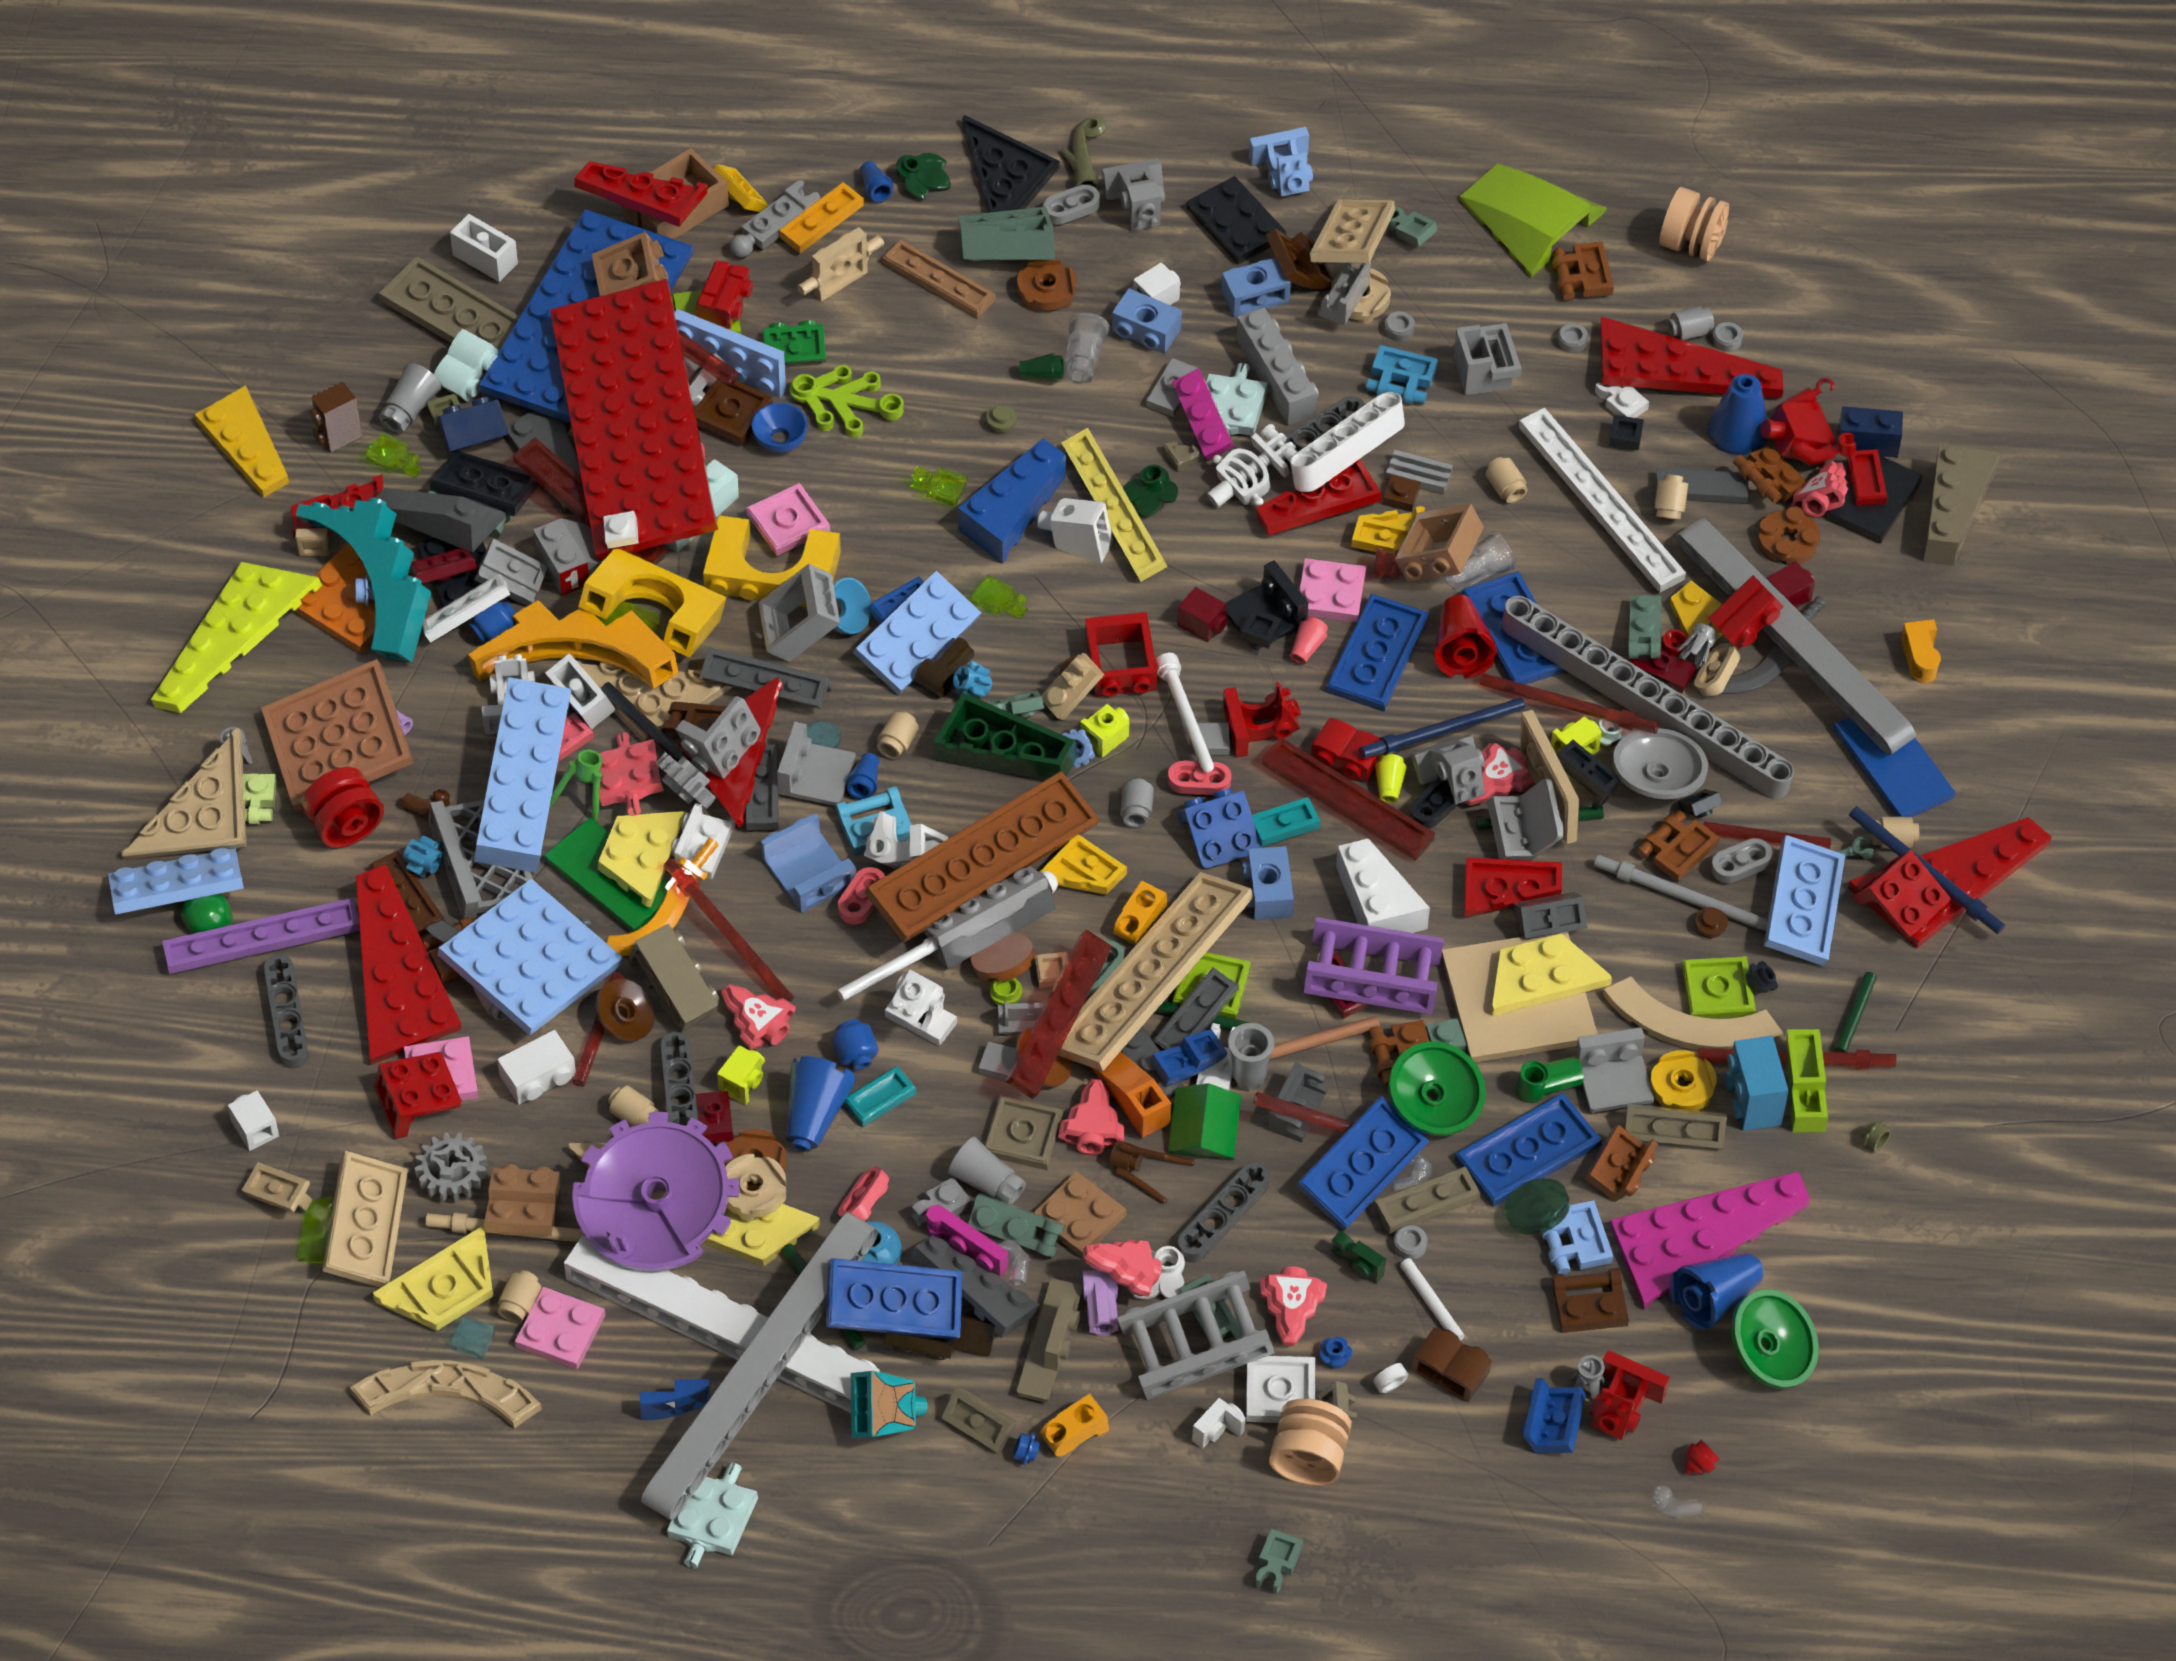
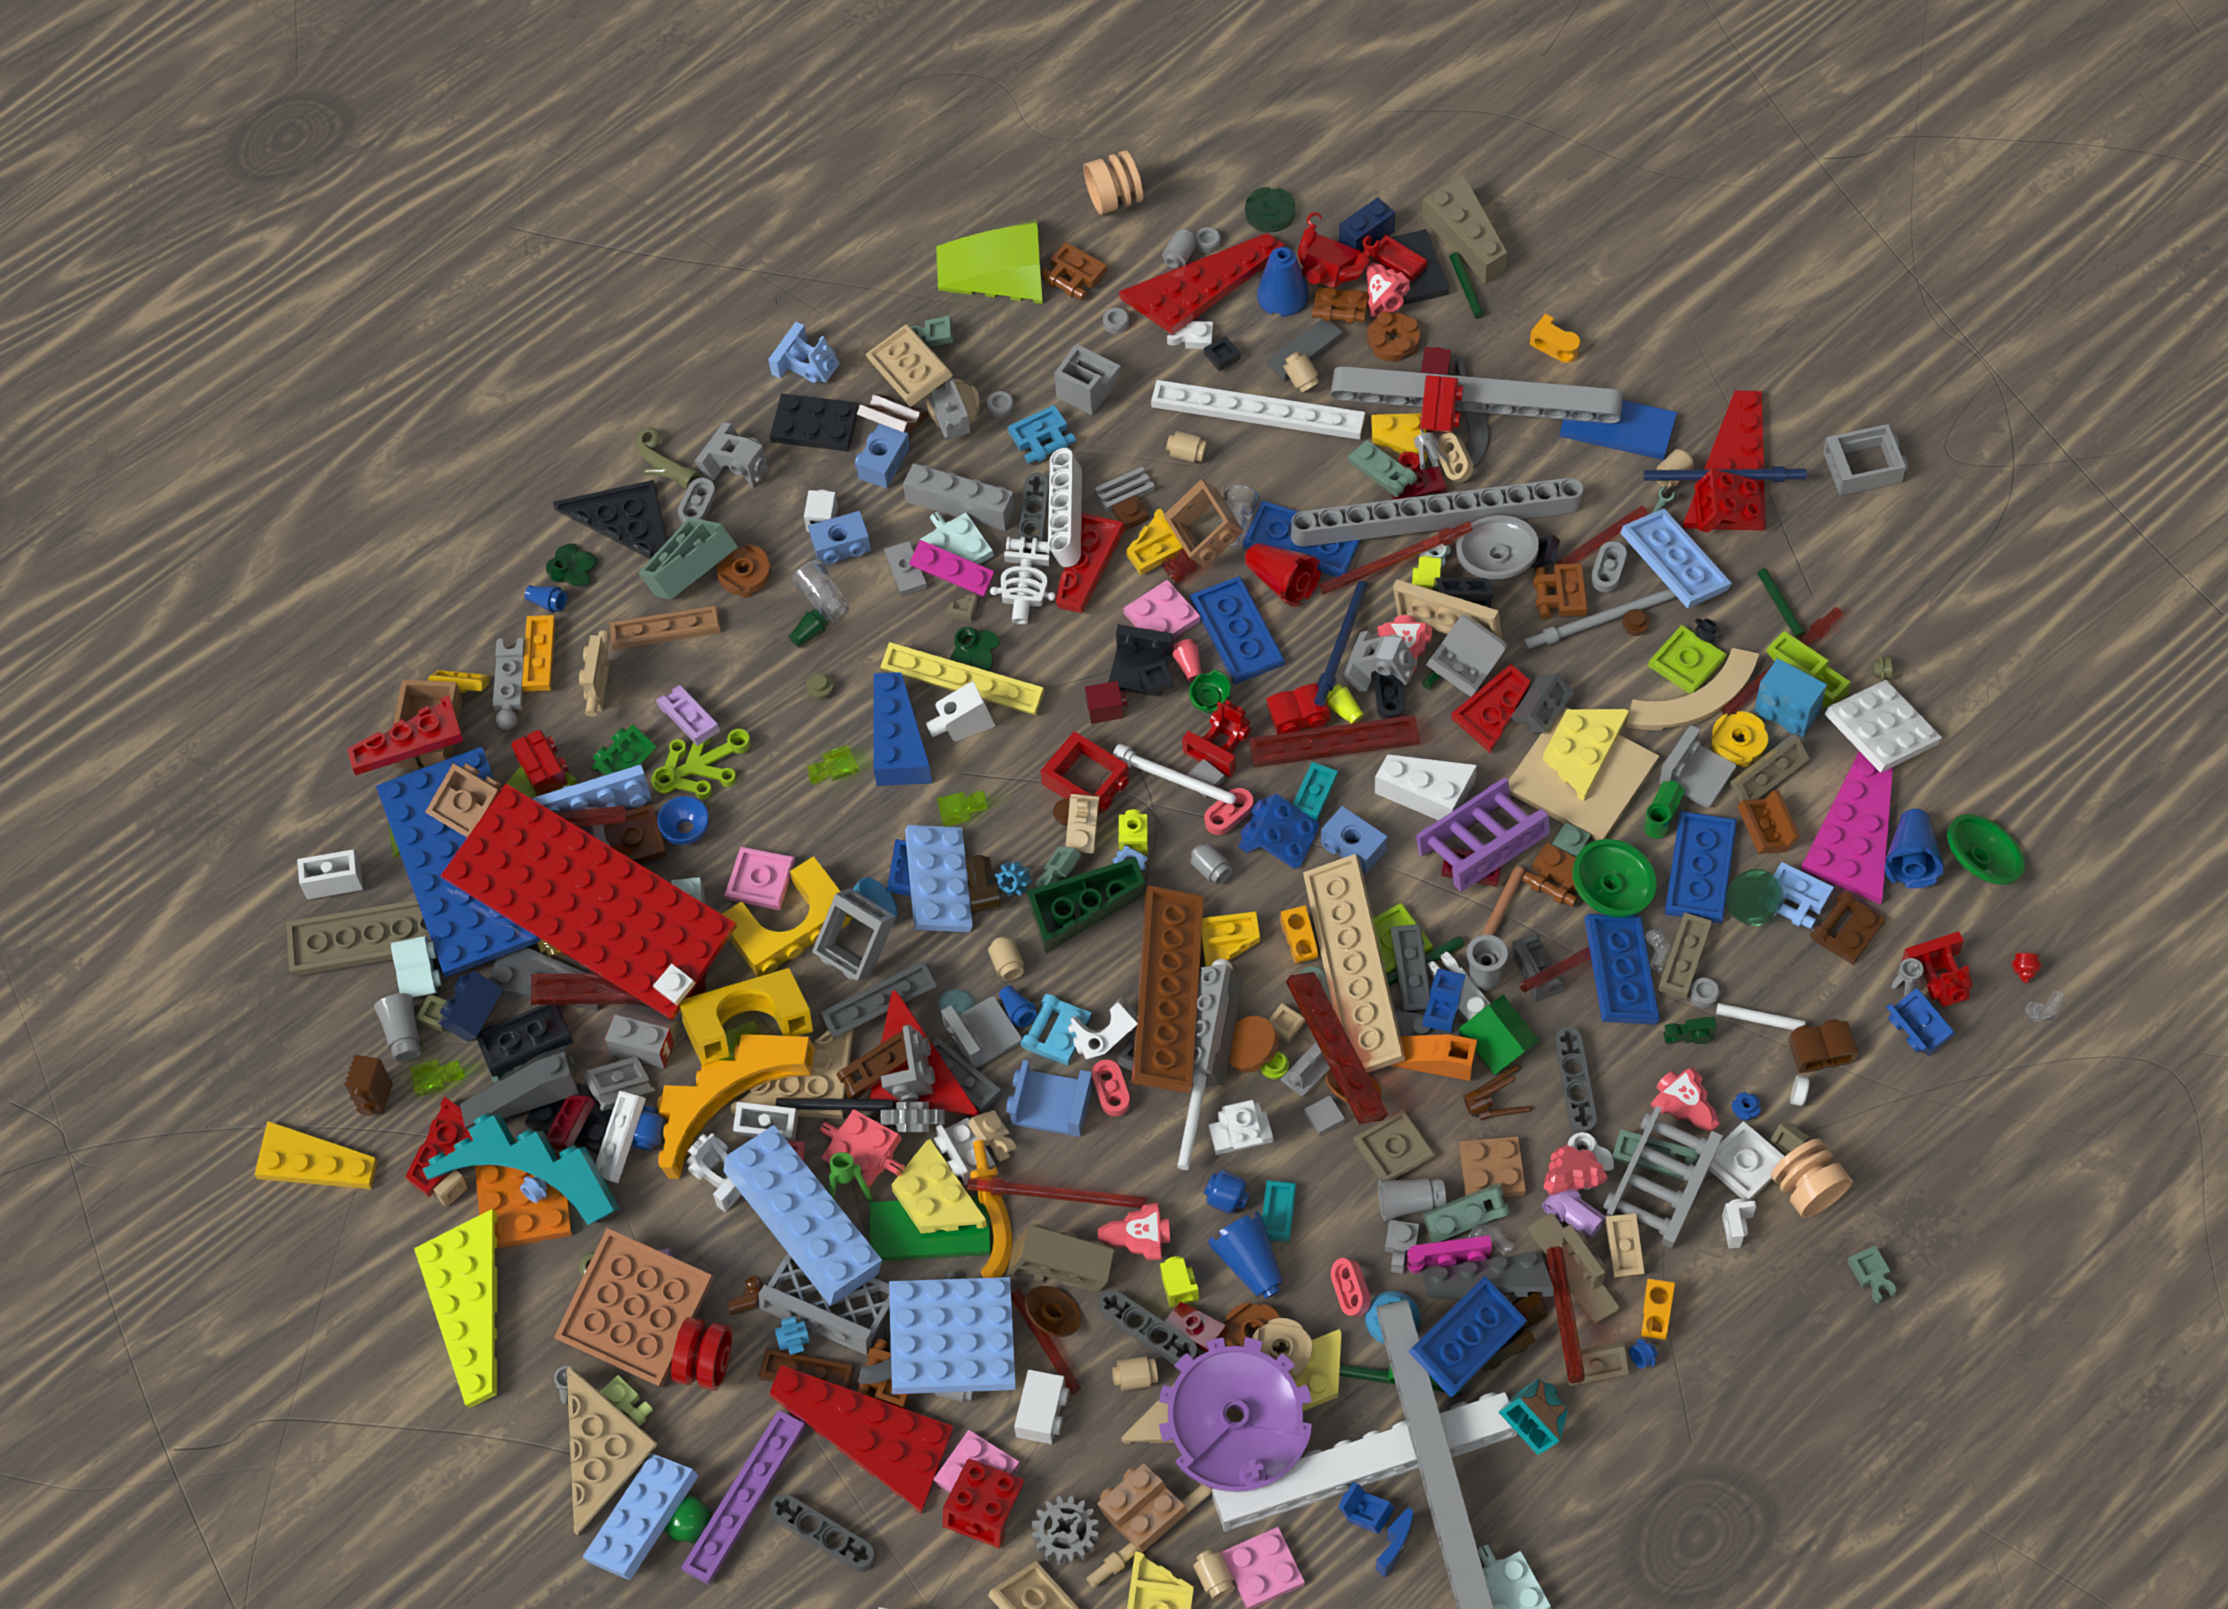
camera: 40 degrees left, 5 degrees up
(680, 1353) = (1365, 1509): none -> blue bracket
(736, 846) = (994, 1133): none -> tan plate
(874, 355) = (688, 715): none -> lavender plate
(993, 1359) = (1565, 1315): none -> clear red axle
(1093, 1121) = (1429, 1098): coral rock -> none
(1106, 1358) = (1624, 1245): none -> tan plate
(1293, 673) = (1209, 690): none -> green hair
(1810, 354) = (1270, 209): none -> clear green tile
(1813, 1175) = (1883, 726): none -> white plate
(1903, 548) = (1466, 285): none -> dark green bar
(2080, 942) = (1863, 439): none -> light grey window

